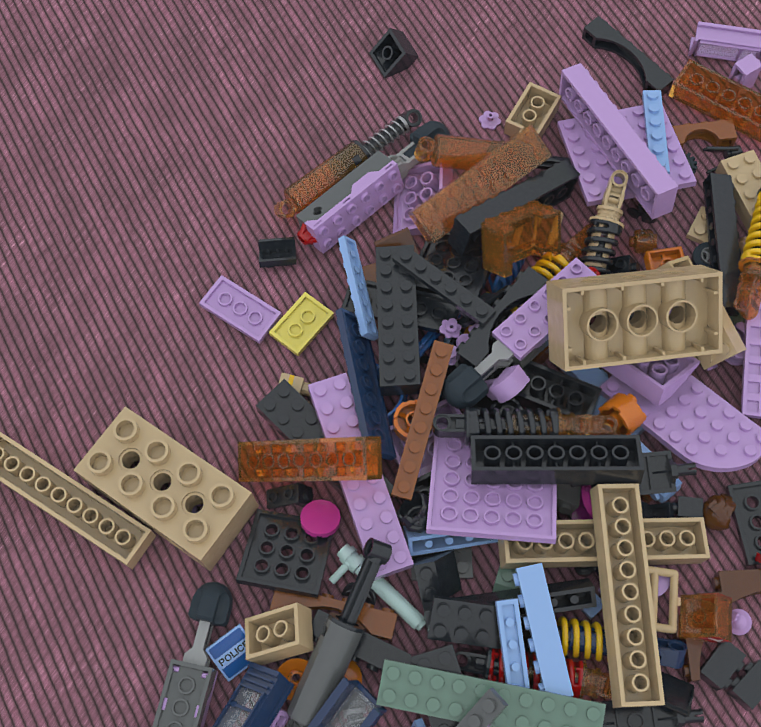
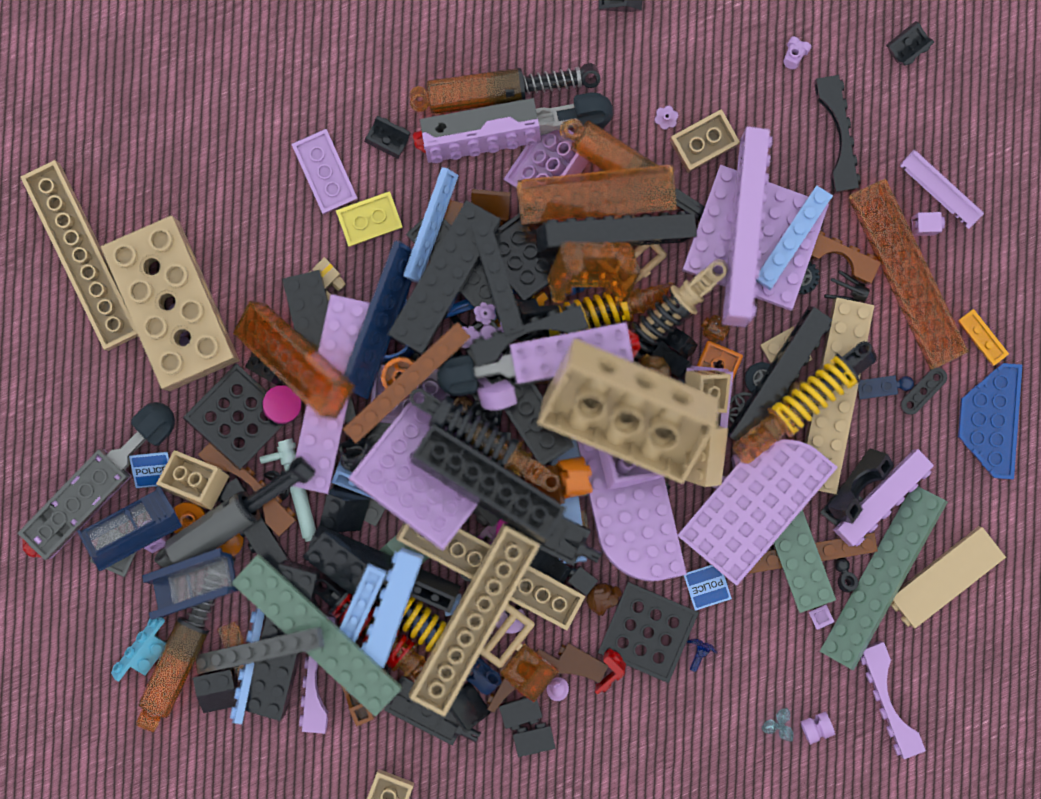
camera: 30 degrees right, 20 degrees up
(554, 23) = (795, 52): none -> lavender plate

